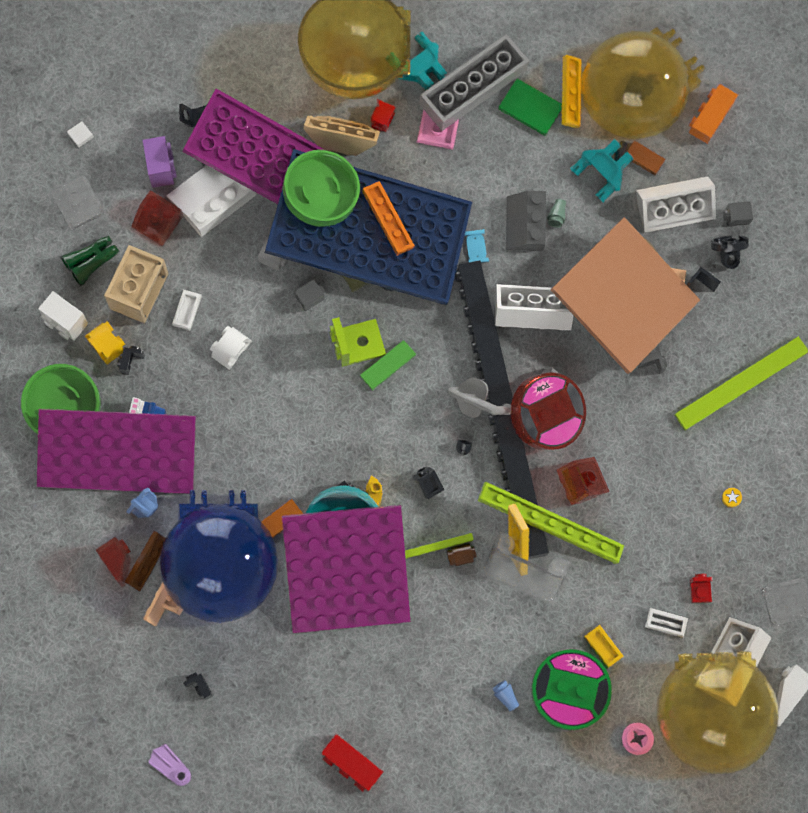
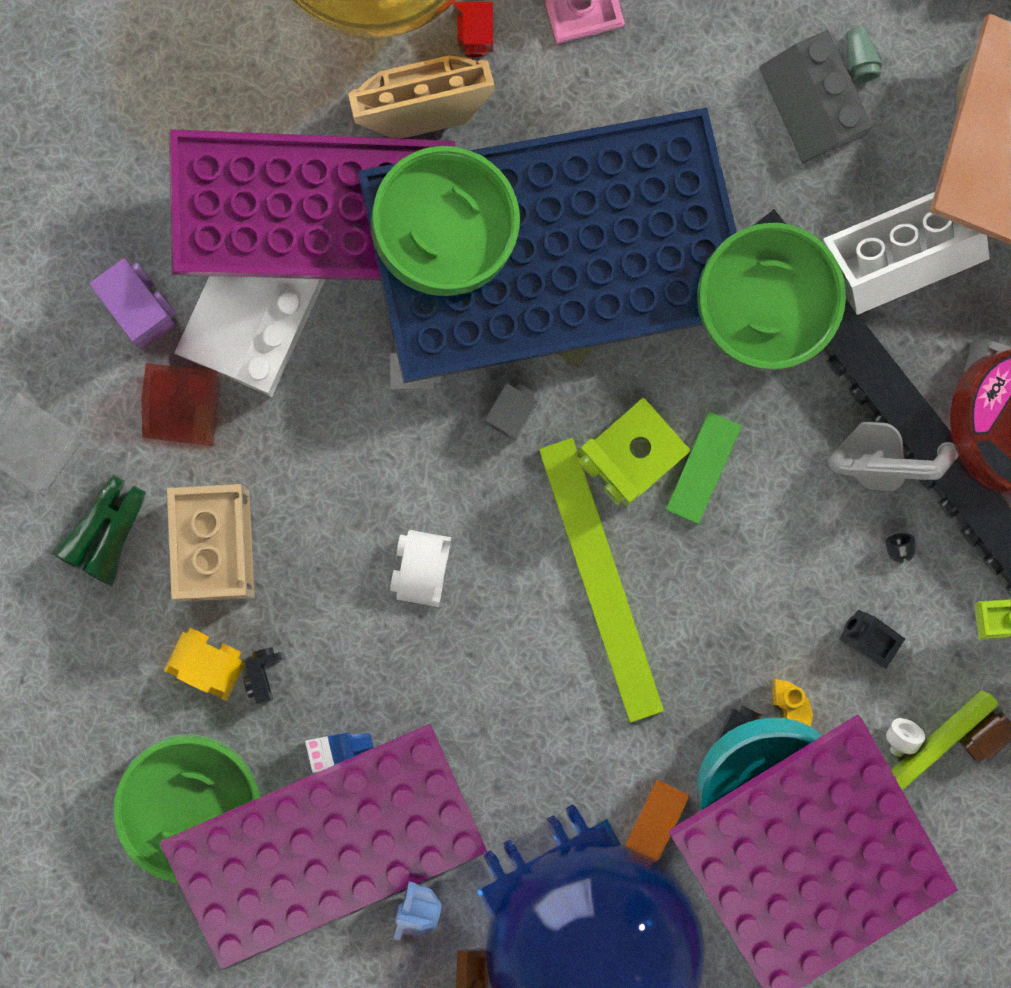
camera: 15 degrees left, 10 degrees up
(63, 316) = (113, 659): white brick -> none
(186, 310) = (314, 539): white tile -> none
(193, 114) = (151, 185): black bracket -> none
(312, 395) = (601, 580): none -> lime tile
(388, 218) = (583, 214): orange plate -> none
(420, 536) = (904, 737): none -> white tile
(457, 296) = (771, 296): none -> bright green brick
(476, 246) = (751, 184): medium azure piece -> none

